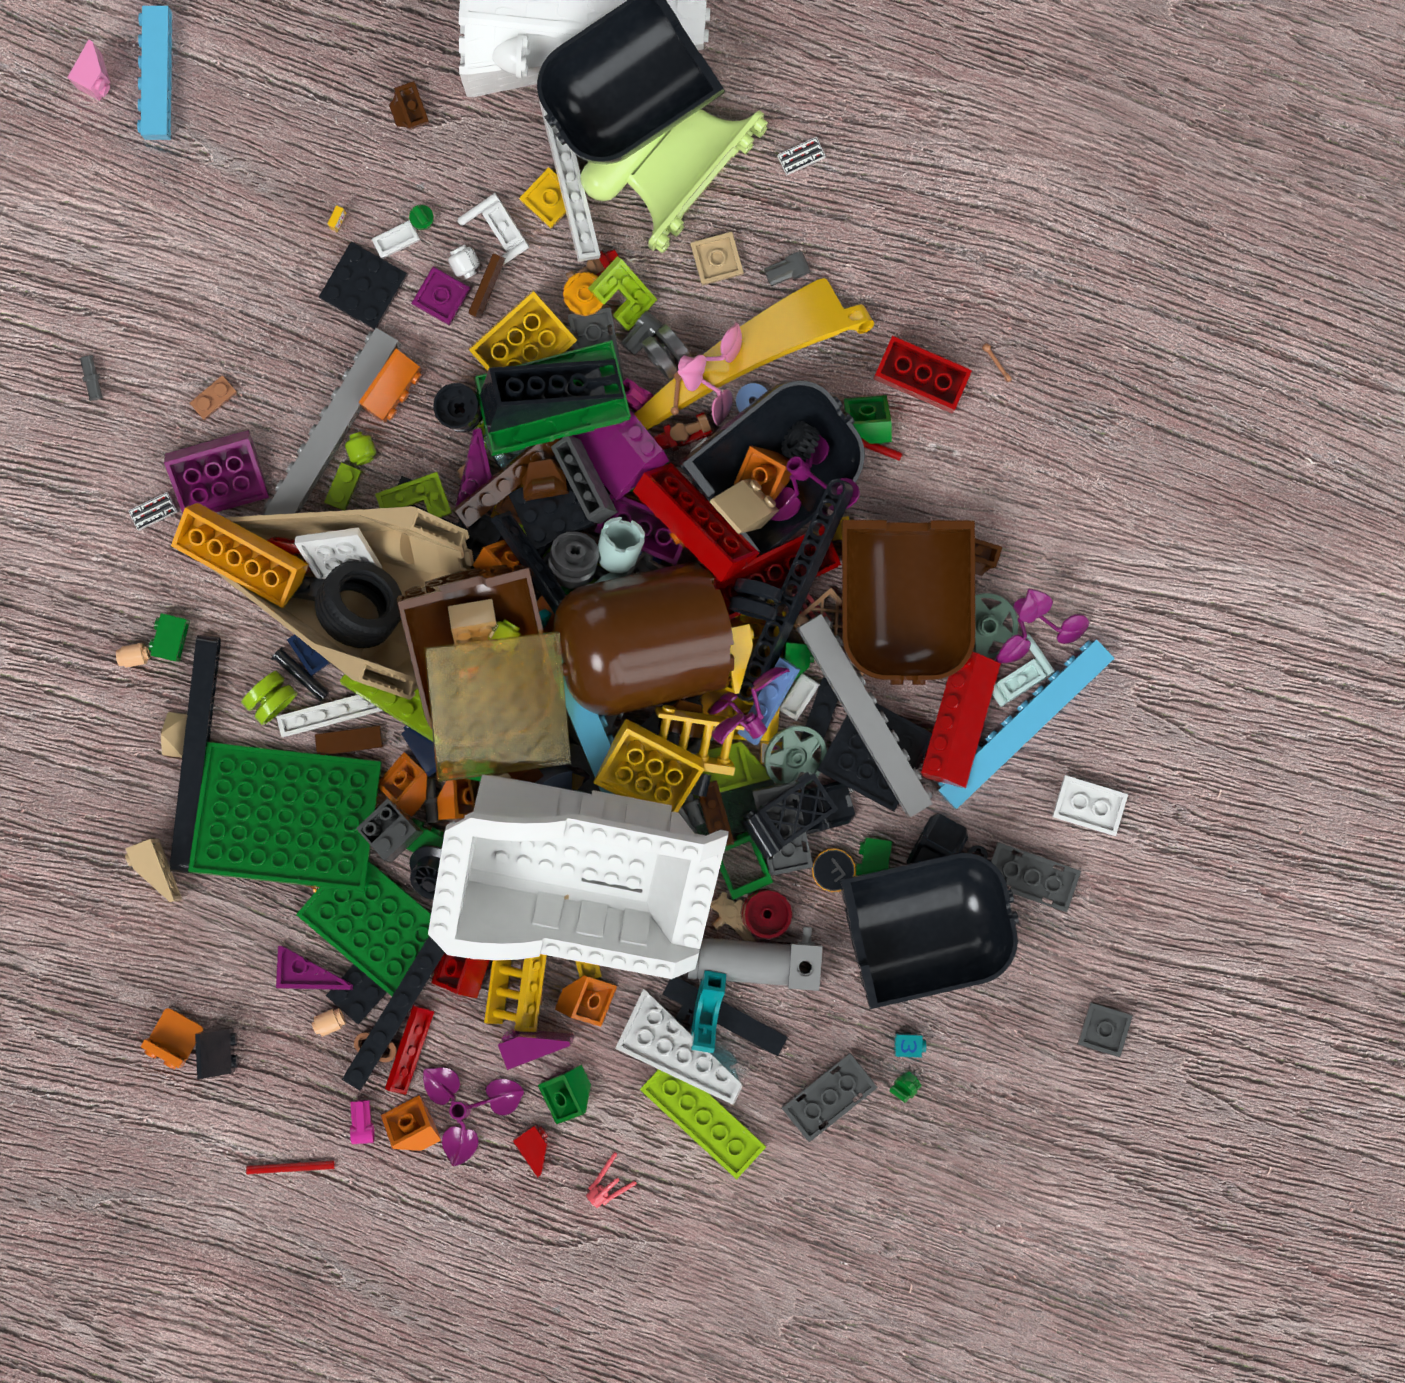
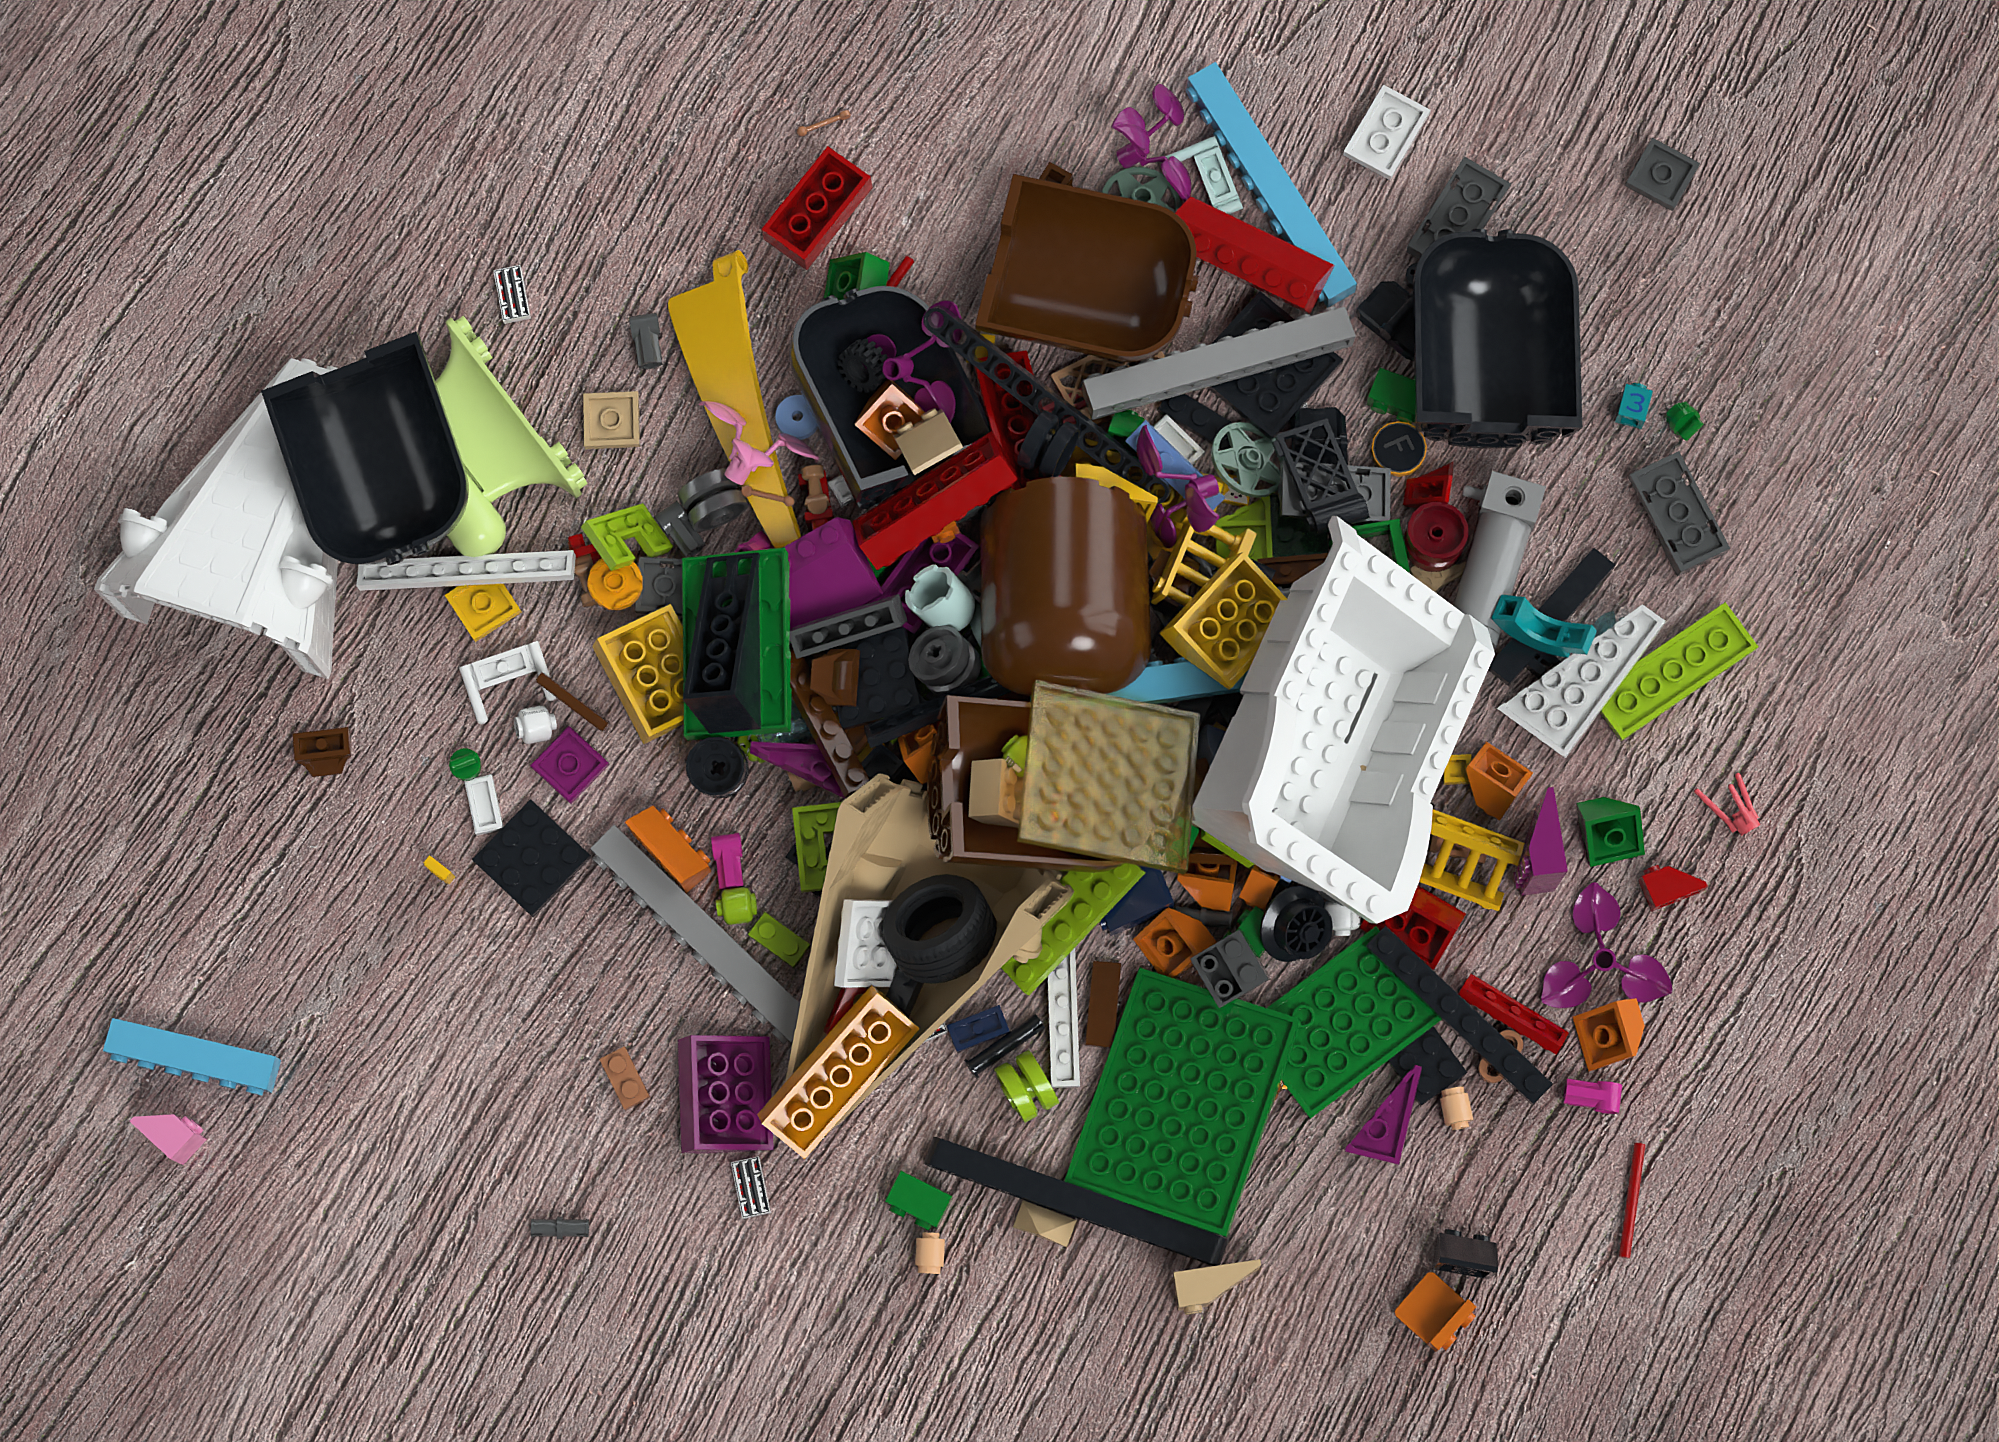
camera: 70 degrees left, 10 degrees down
(398, 432) = (728, 855): none -> dark pink piece
(807, 901) = (1430, 487): none -> red slope

